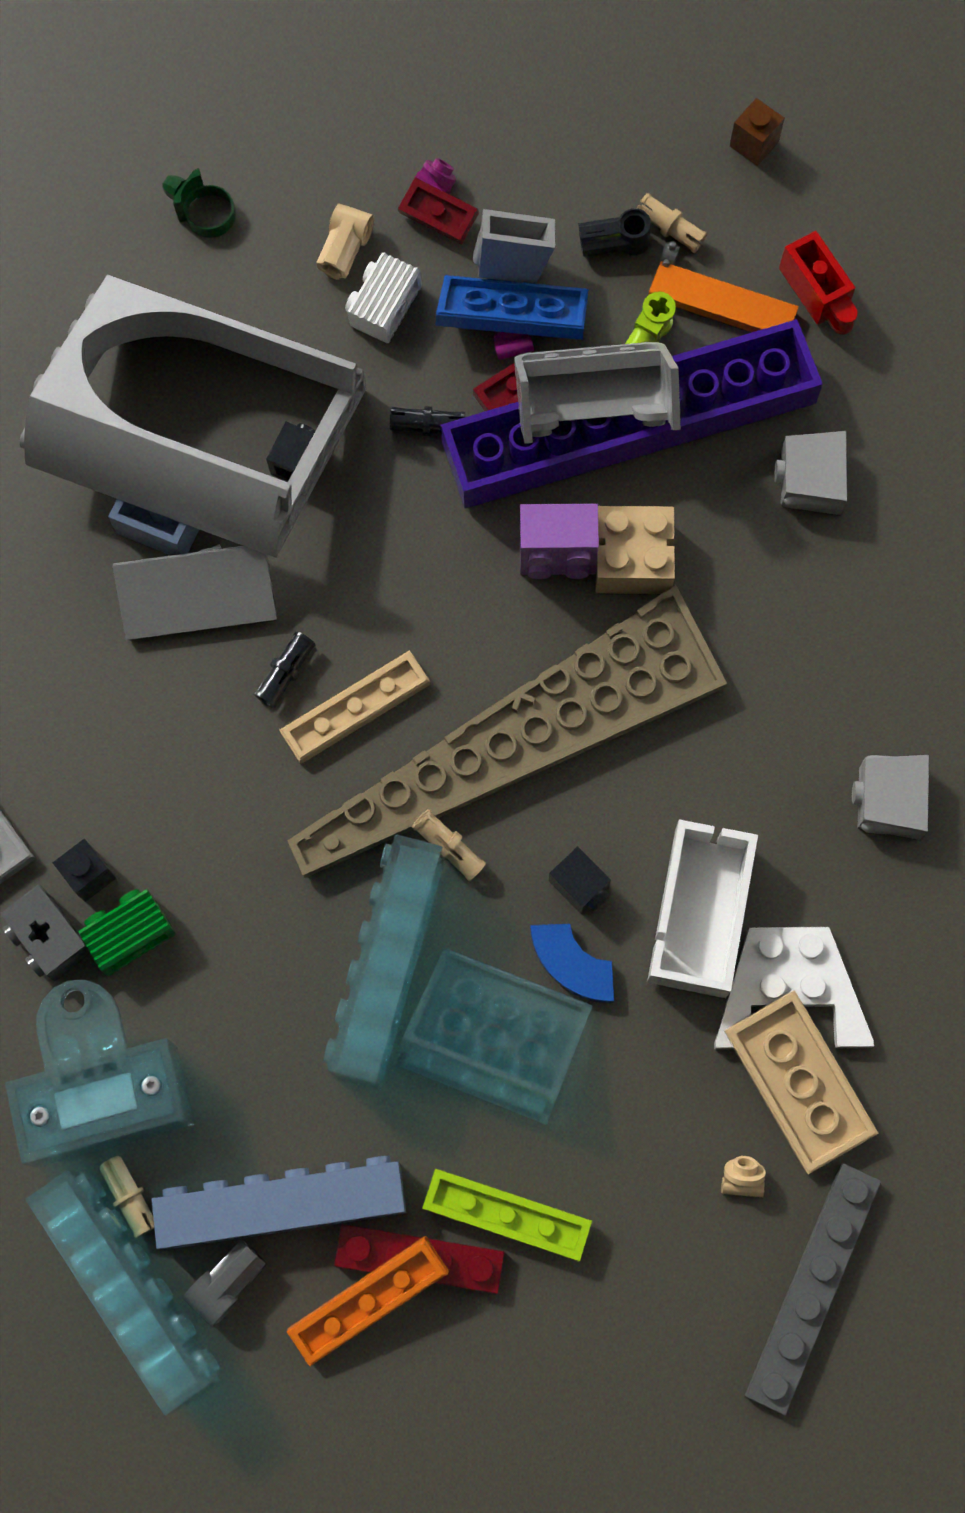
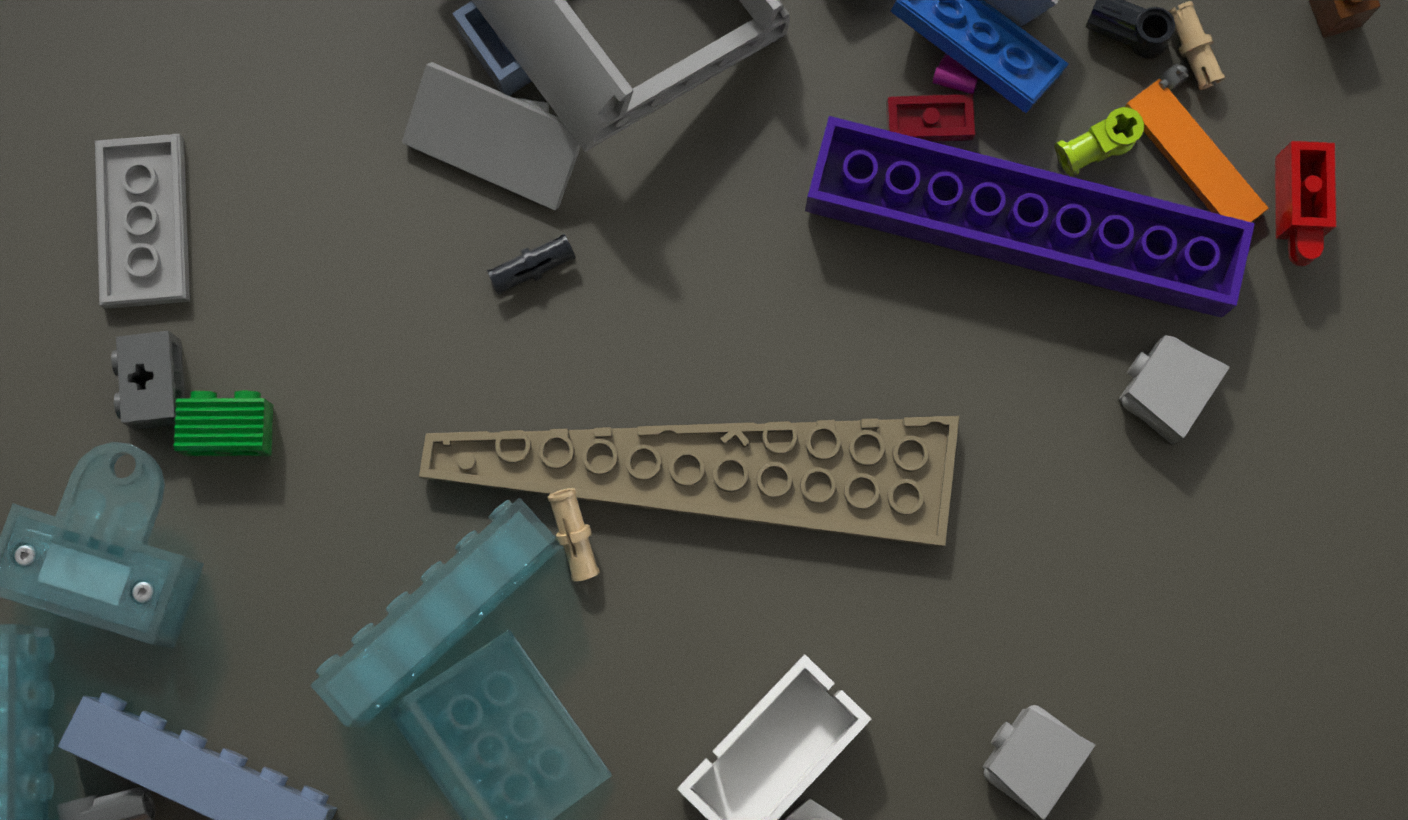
camera: 30 degrees right, 5 degrees up
(84, 870) = (221, 342): black brick -> none
(127, 1196) = (69, 675): tan axle -> none
(288, 449) = (671, 47): black brick -> none
(355, 707) = (575, 342): tan tile -> none
(421, 420) = (821, 99): black pin -> none
(558, 540) = (870, 301): medium lavender brick -> none
(570, 965) = (616, 723): blue tile -> none
(580, 881) = (676, 650): black brick -> none
(597, 384) = (1002, 167): light grey windscreen -> none
(635, 549) = (941, 355): tan piece -> none

